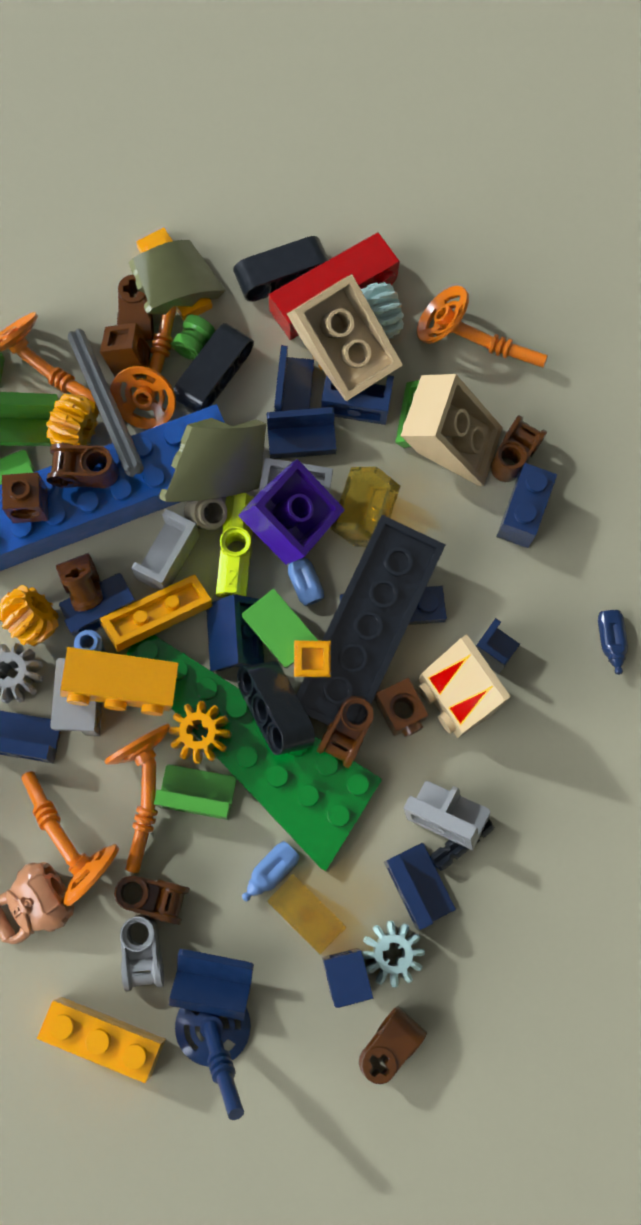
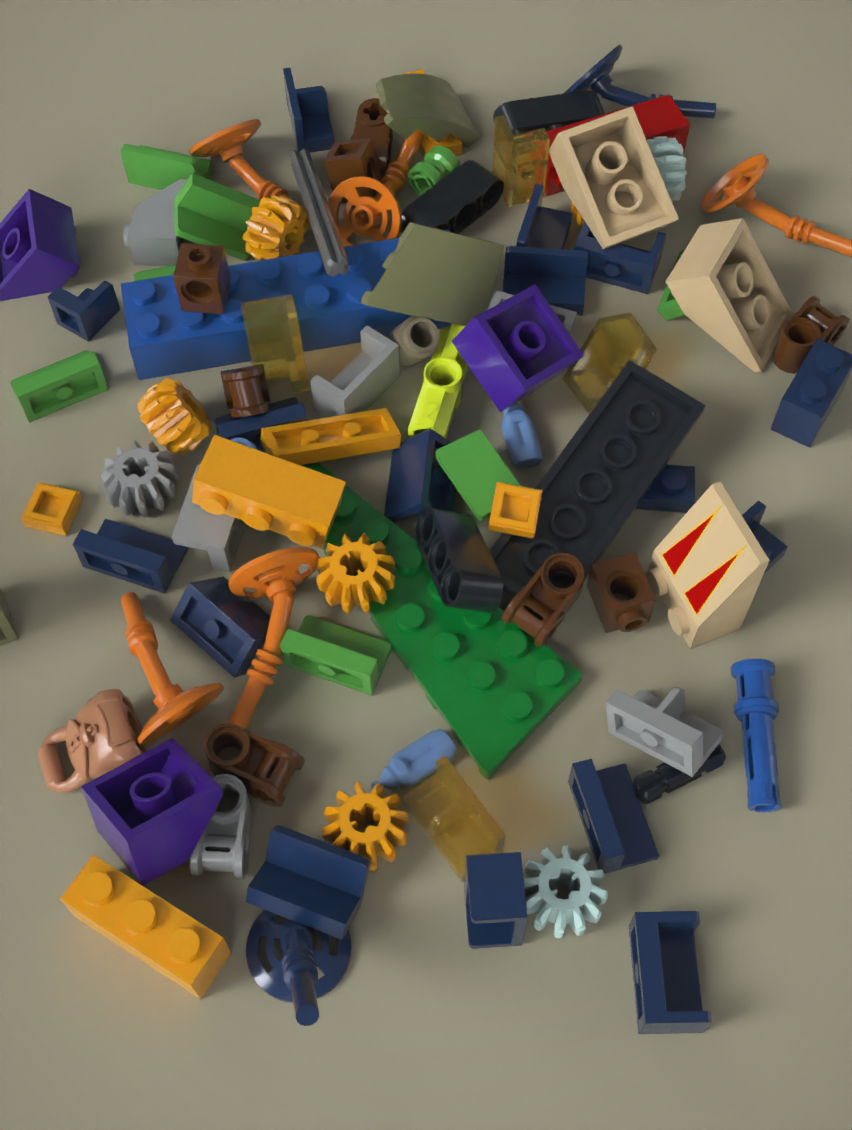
camera: 15 degrees right, 15 degrees down
(75, 463) = (279, 257): reddish brown piece -> none
(76, 292) = (308, 115): none -> dark blue panel
(88, 953) = (153, 809): none -> dark purple slope
(95, 534) = (276, 340): none -> clear yellow panel
(105, 788) = (222, 623): none -> dark blue panel
(237, 920) = (355, 812): none -> light orange gear
(264, 321) = (519, 161): none -> clear yellow panel
(314, 220) = (599, 81): none -> dark blue dish
(396, 1039) = (546, 1009): reddish brown piece -> none
(473, 1000) = (666, 973): none -> dark blue panel
(512, 787) = (756, 712): none -> blue pin

